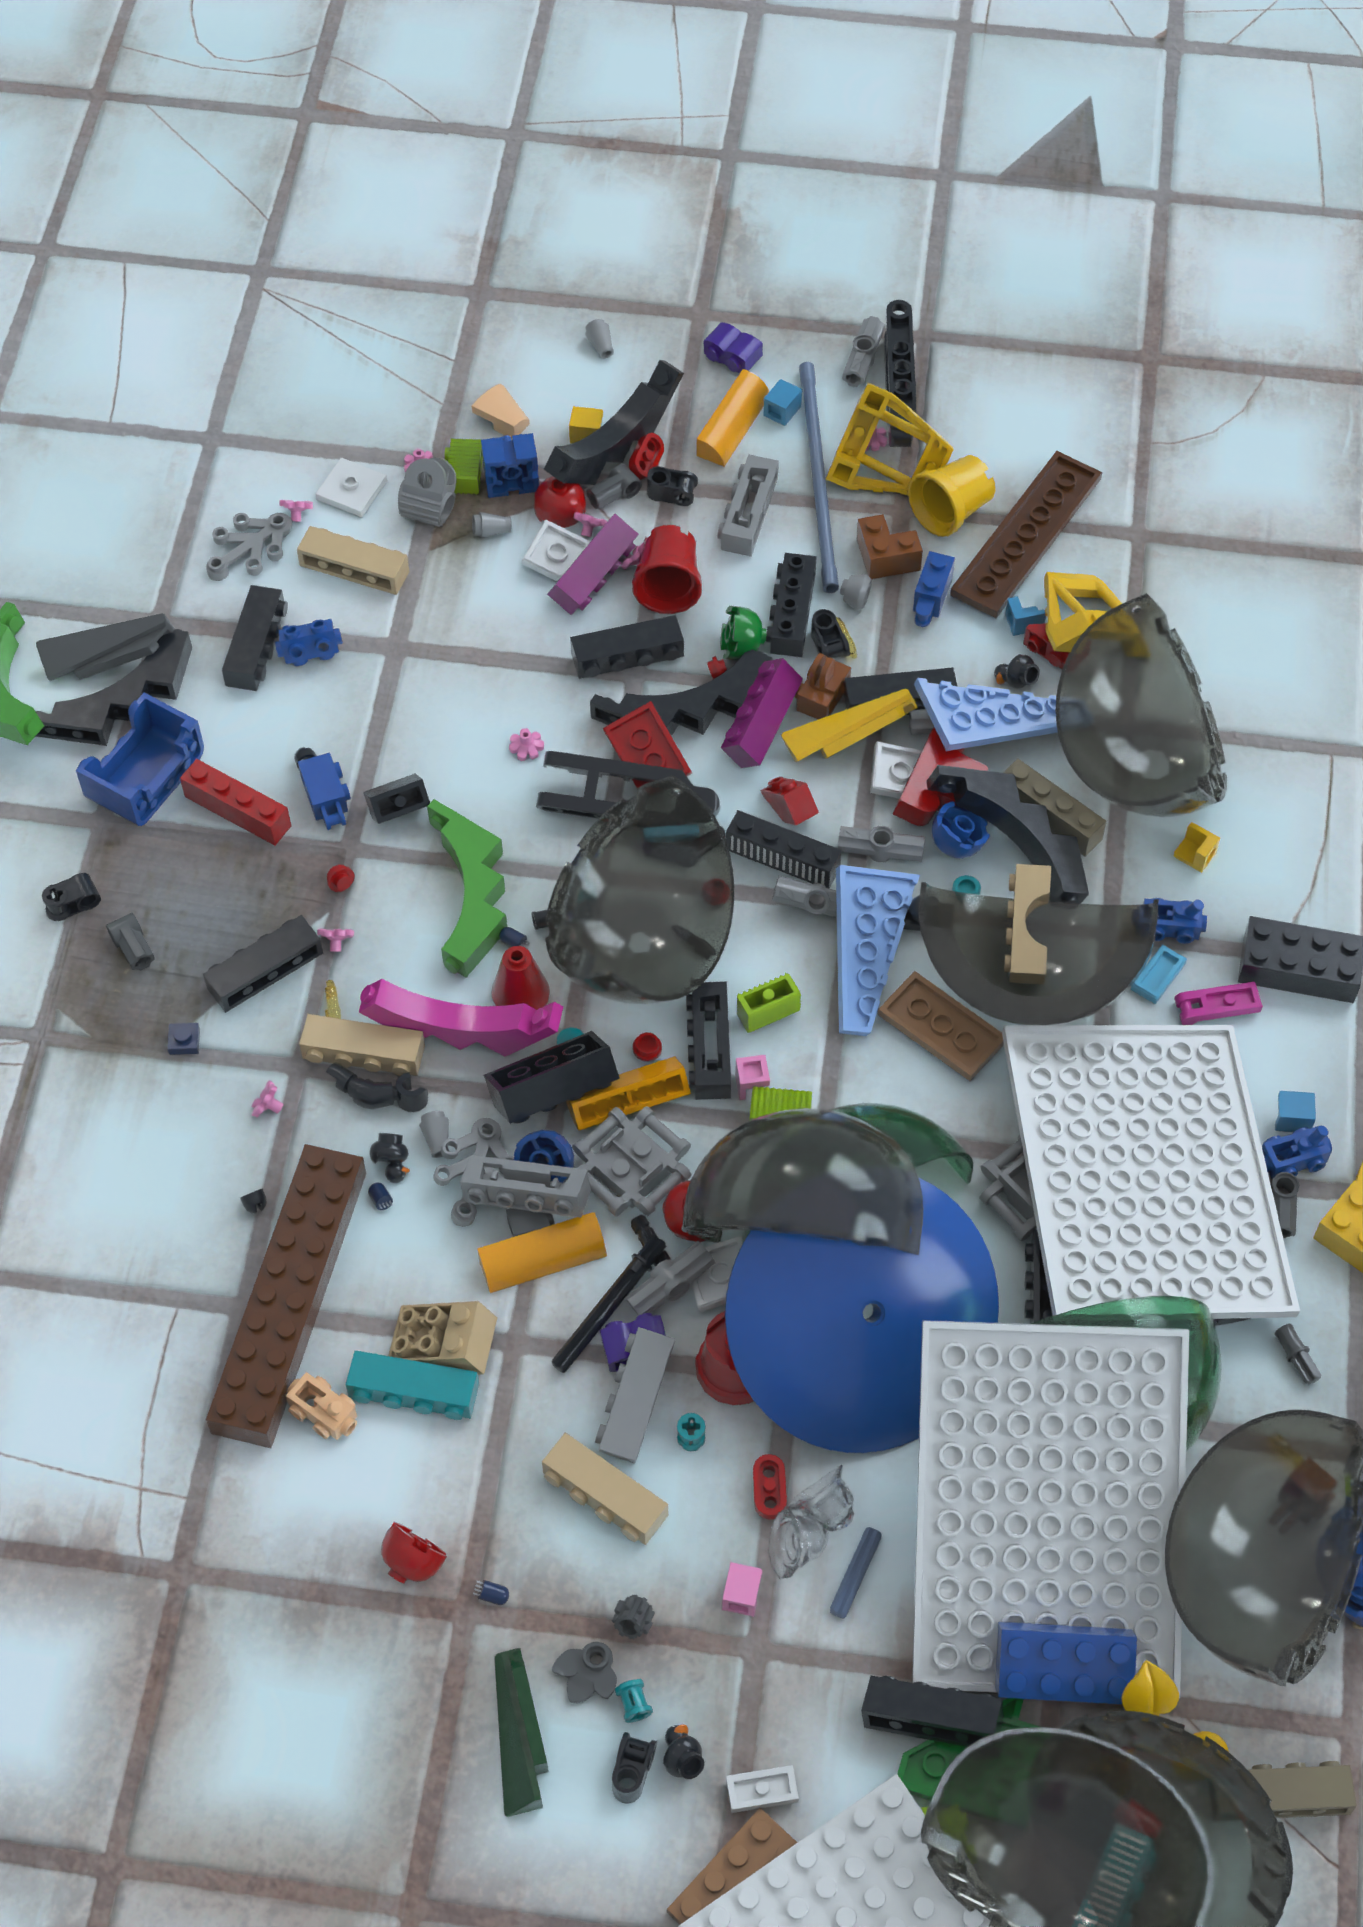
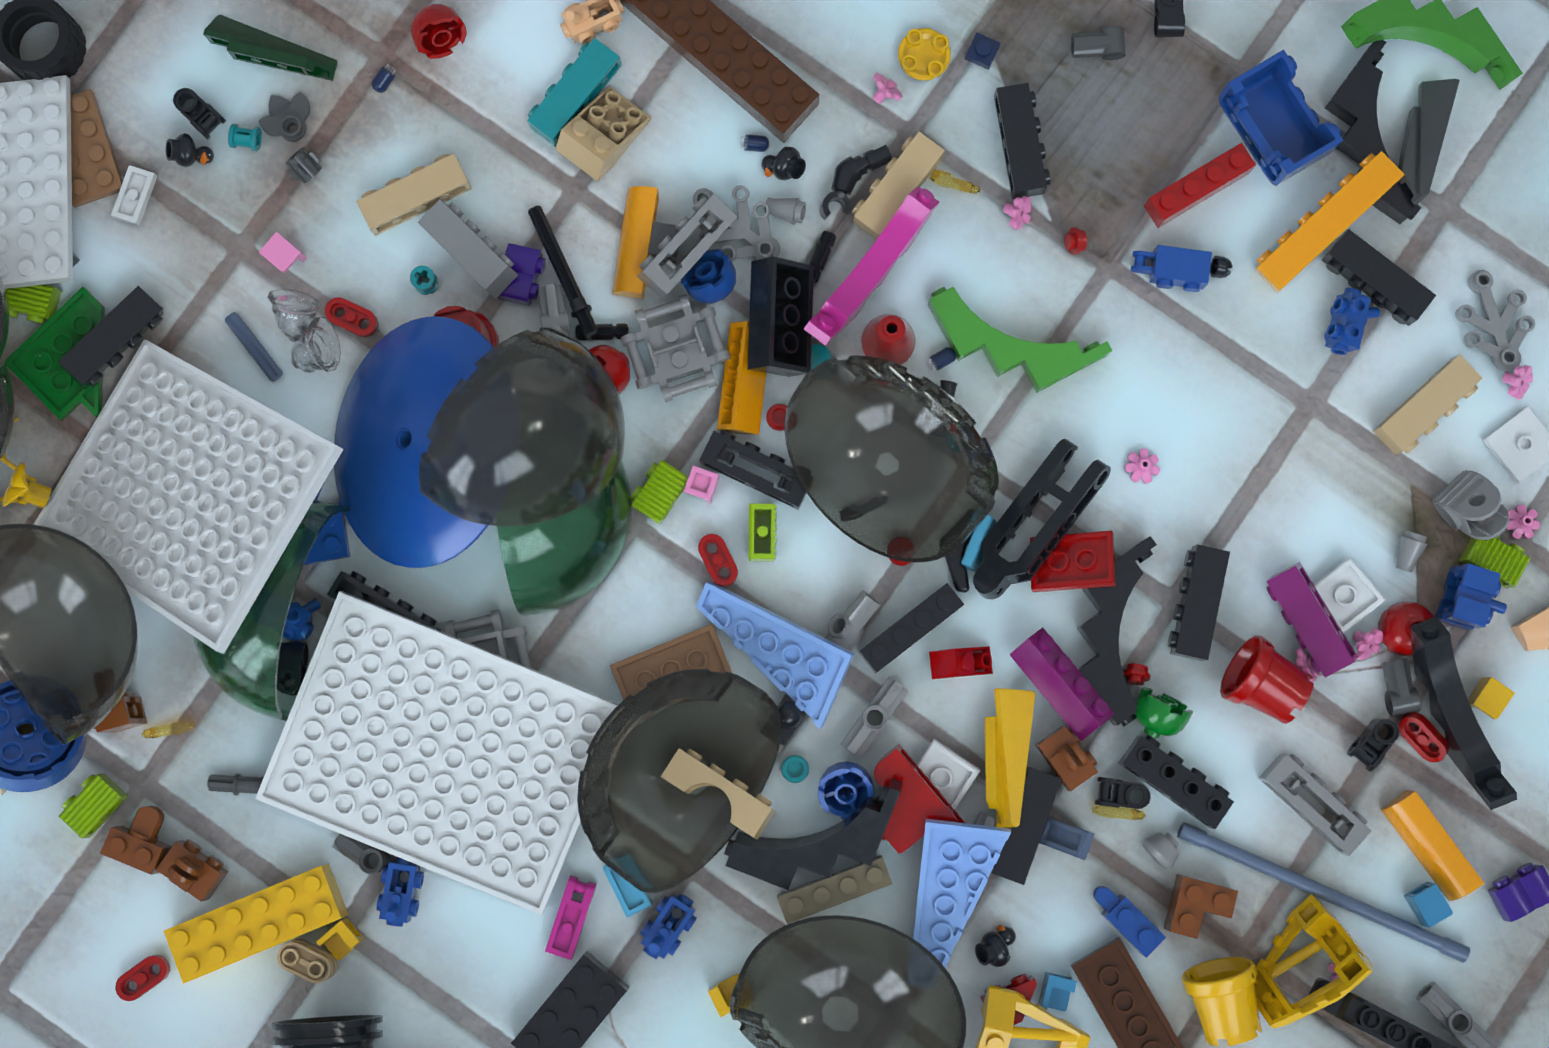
camera: 120 degrees right, 25 degrees up
(212, 1085) = (924, 53): none -> yellow dish
(223, 684) = (1329, 221): none -> light orange brick
(250, 1200) = (800, 43): black hinge -> none
(396, 798) = (1131, 321): black brick -> none
(462, 1085) = (821, 253): none -> black axle
(813, 1036) = (716, 561): none -> red plate
(892, 651) = (1067, 838): none -> sand blue tile
(1064, 1662) = (85, 448): blue brick -> none
(1295, 1111) = (435, 917): dark azure panel -> none

